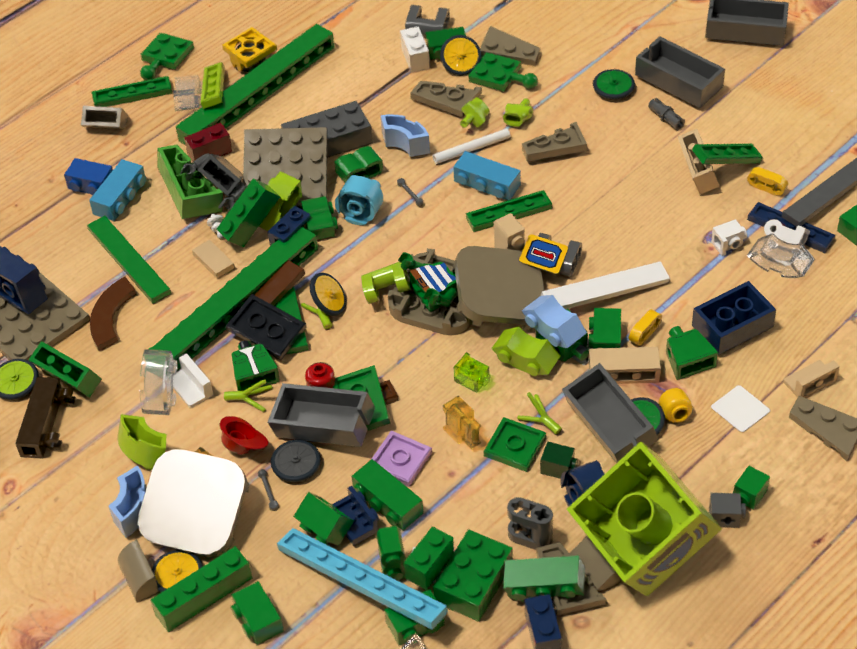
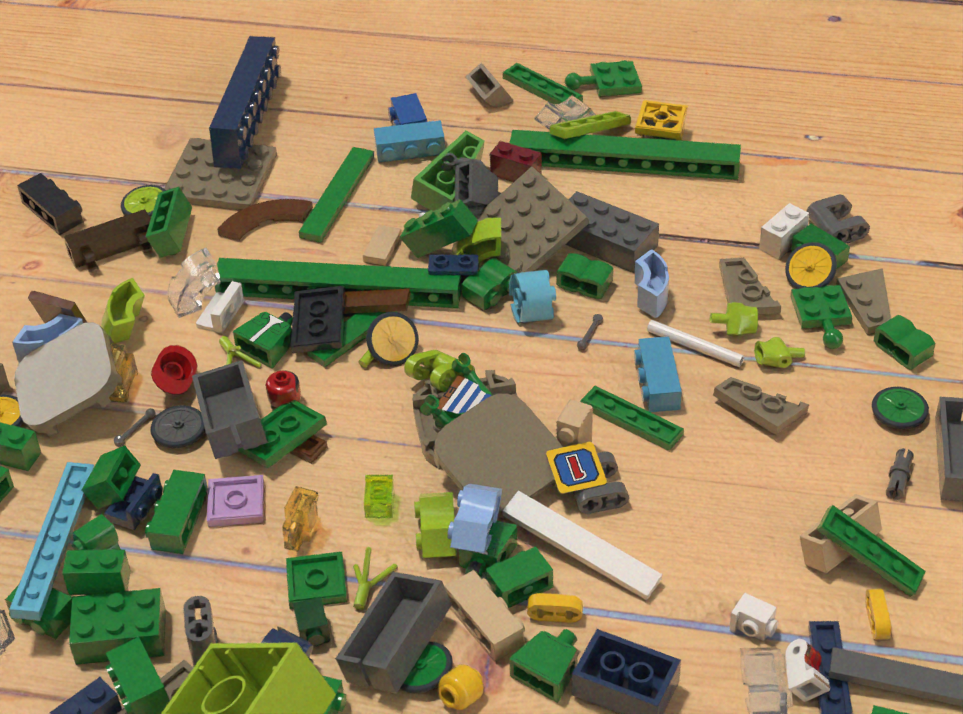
camera: 55 degrees right, 5 degrees down
(105, 481) = (50, 306): none -> reddish brown tile
(563, 51) = (904, 342): none -> green brick

